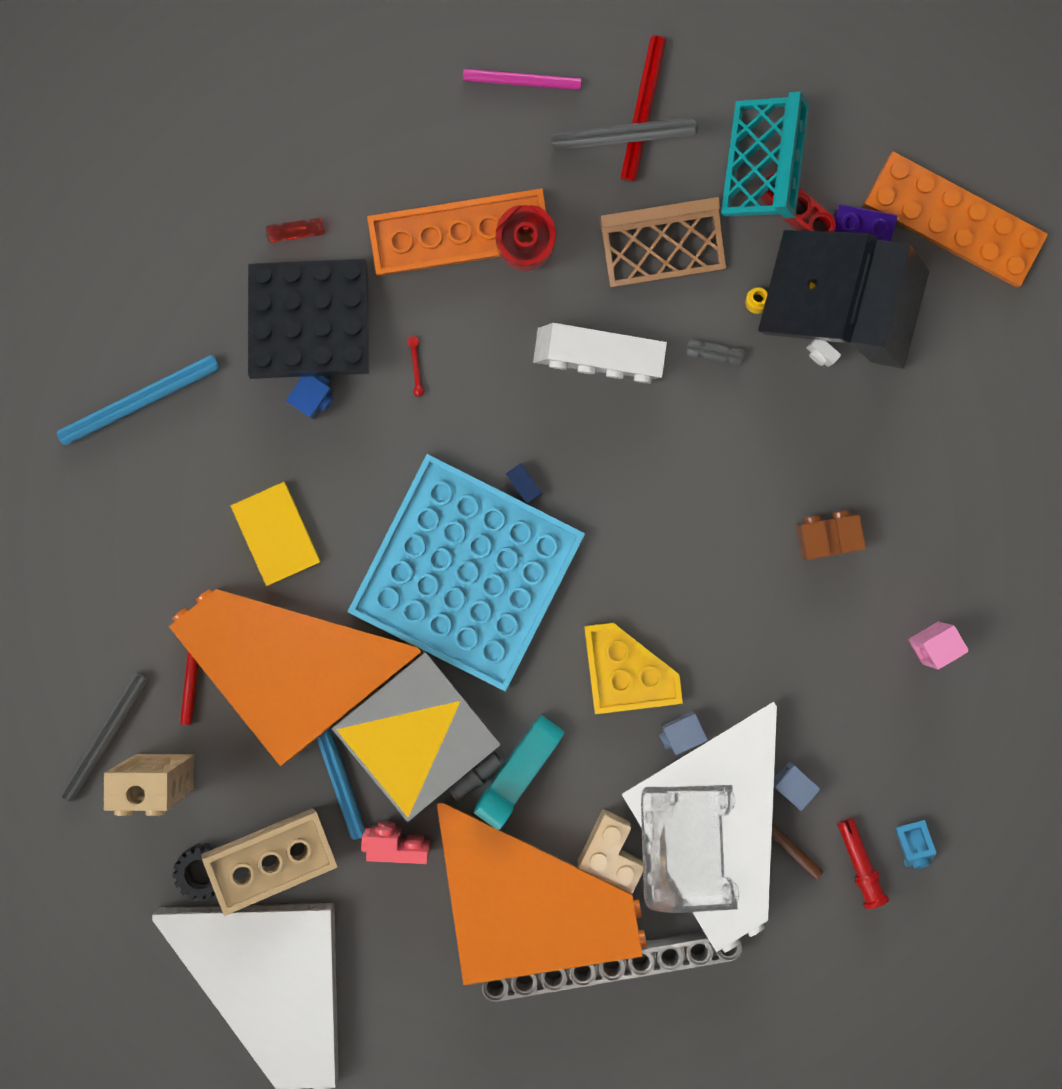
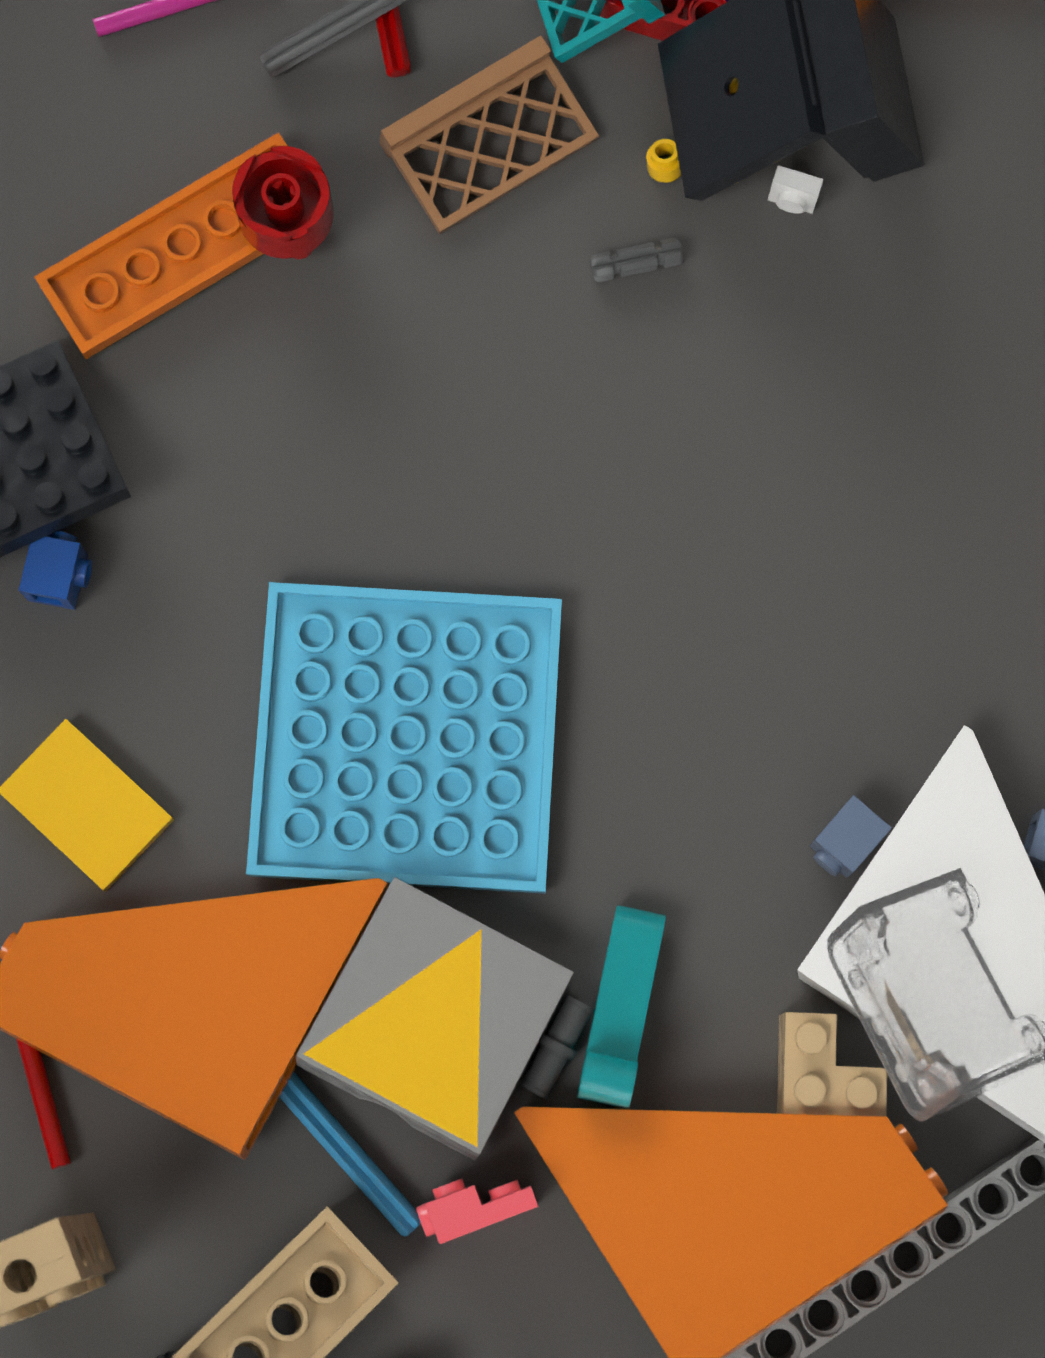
camera: 25 degrees left, 10 degrees down
(413, 342) = (180, 433): red hinge -> none
(523, 483) = (435, 566): dark blue piece -> none
(599, 351) = (463, 324): white wedge -> none
(627, 673) = (720, 783): yellow plate -> none
(830, 536) = (932, 448): dark orange brick -> none

